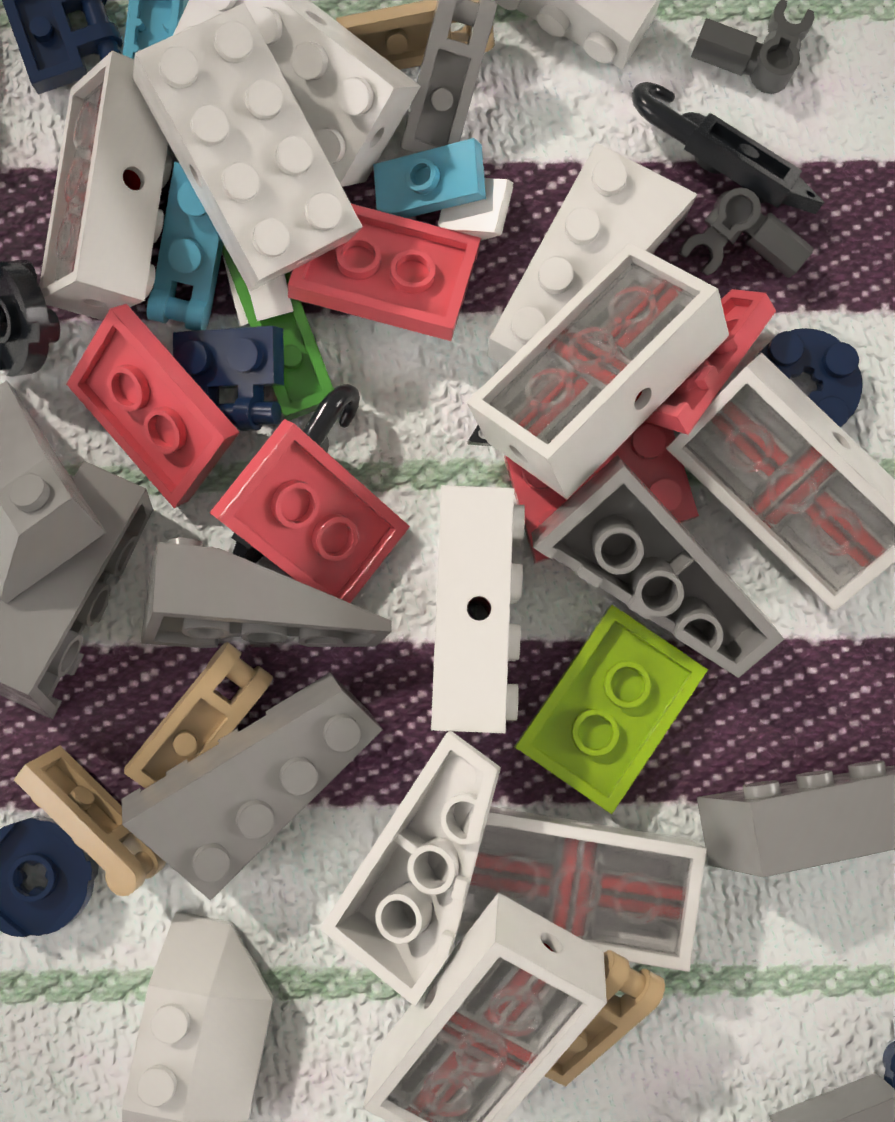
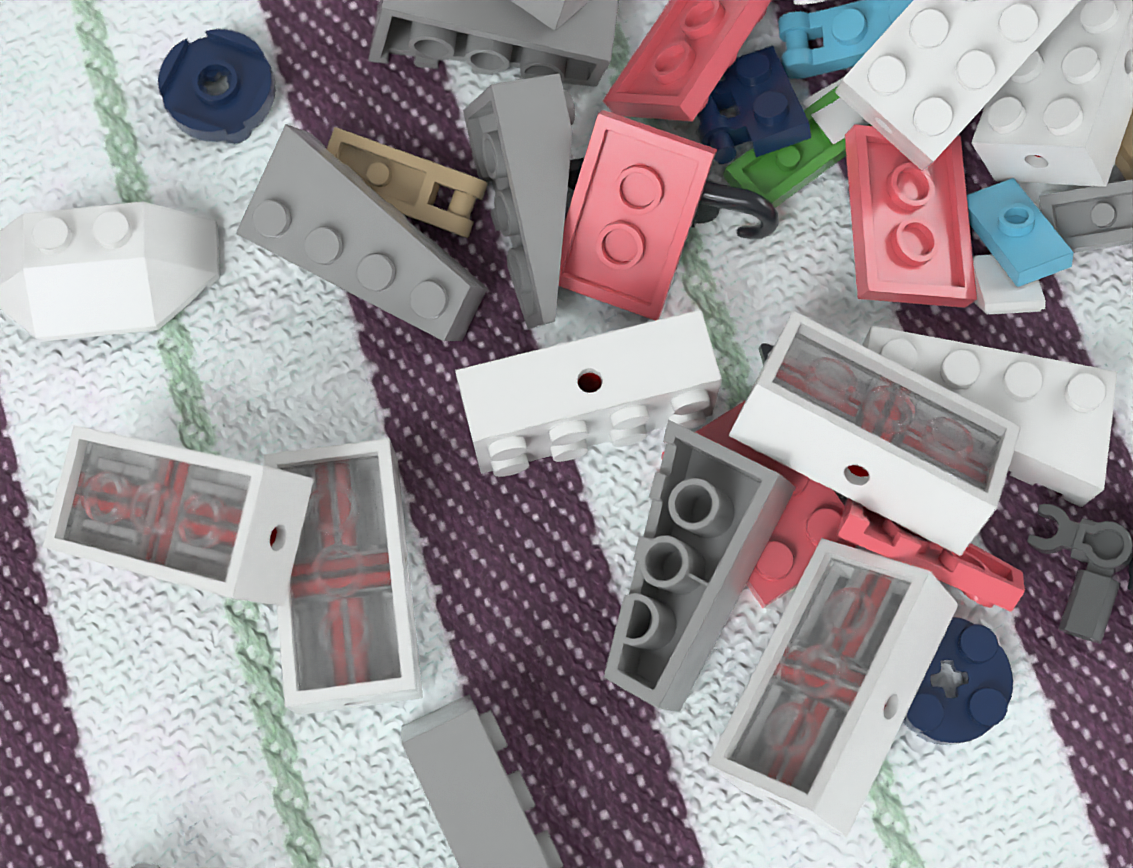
camera: 75 degrees right, 10 degrees down
(89, 818) = (293, 99): tan plate -> none
(415, 880) = (303, 403): white wedge -> none
(611, 708) = (533, 570): lime plate -> none
(620, 1015) = (212, 628): tan plate -> none

